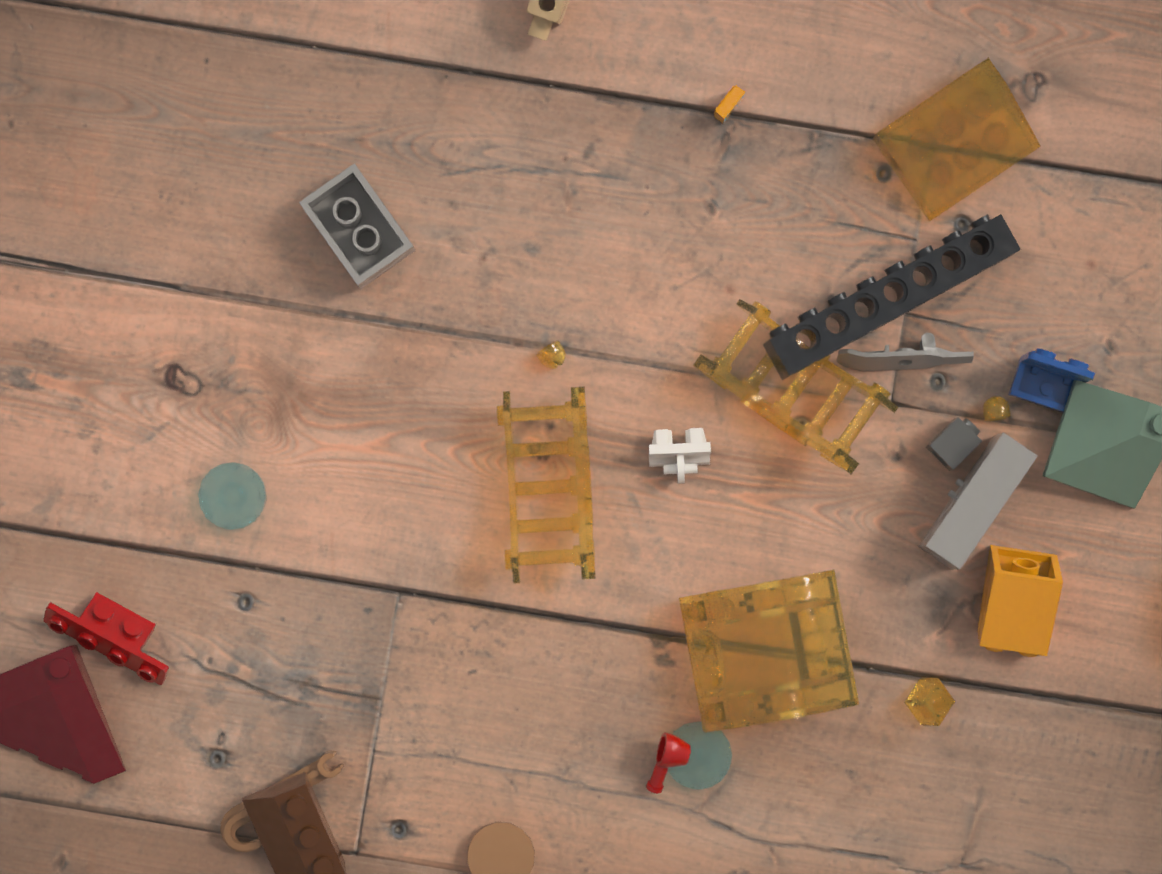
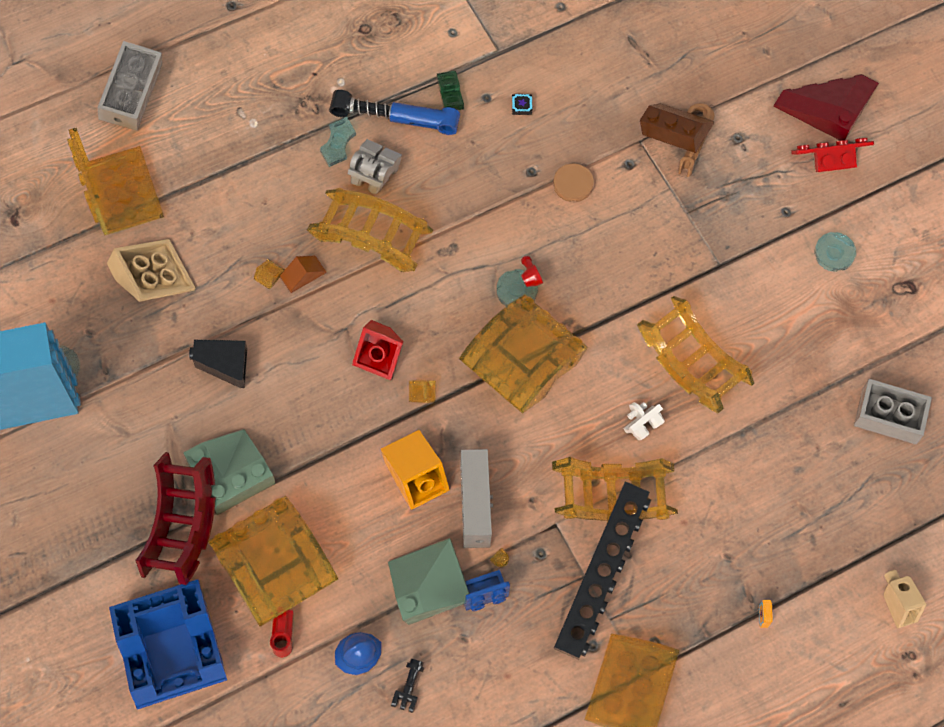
camera: 140 degrees right, 20 degrees down
(552, 355) = (744, 422): clear yellow hinge -> none
(903, 358) = (558, 558): light grey piece -> none
(947, 799) = (378, 350): none -> red slope
(955, 442) = (508, 524): dark grey brick -> none

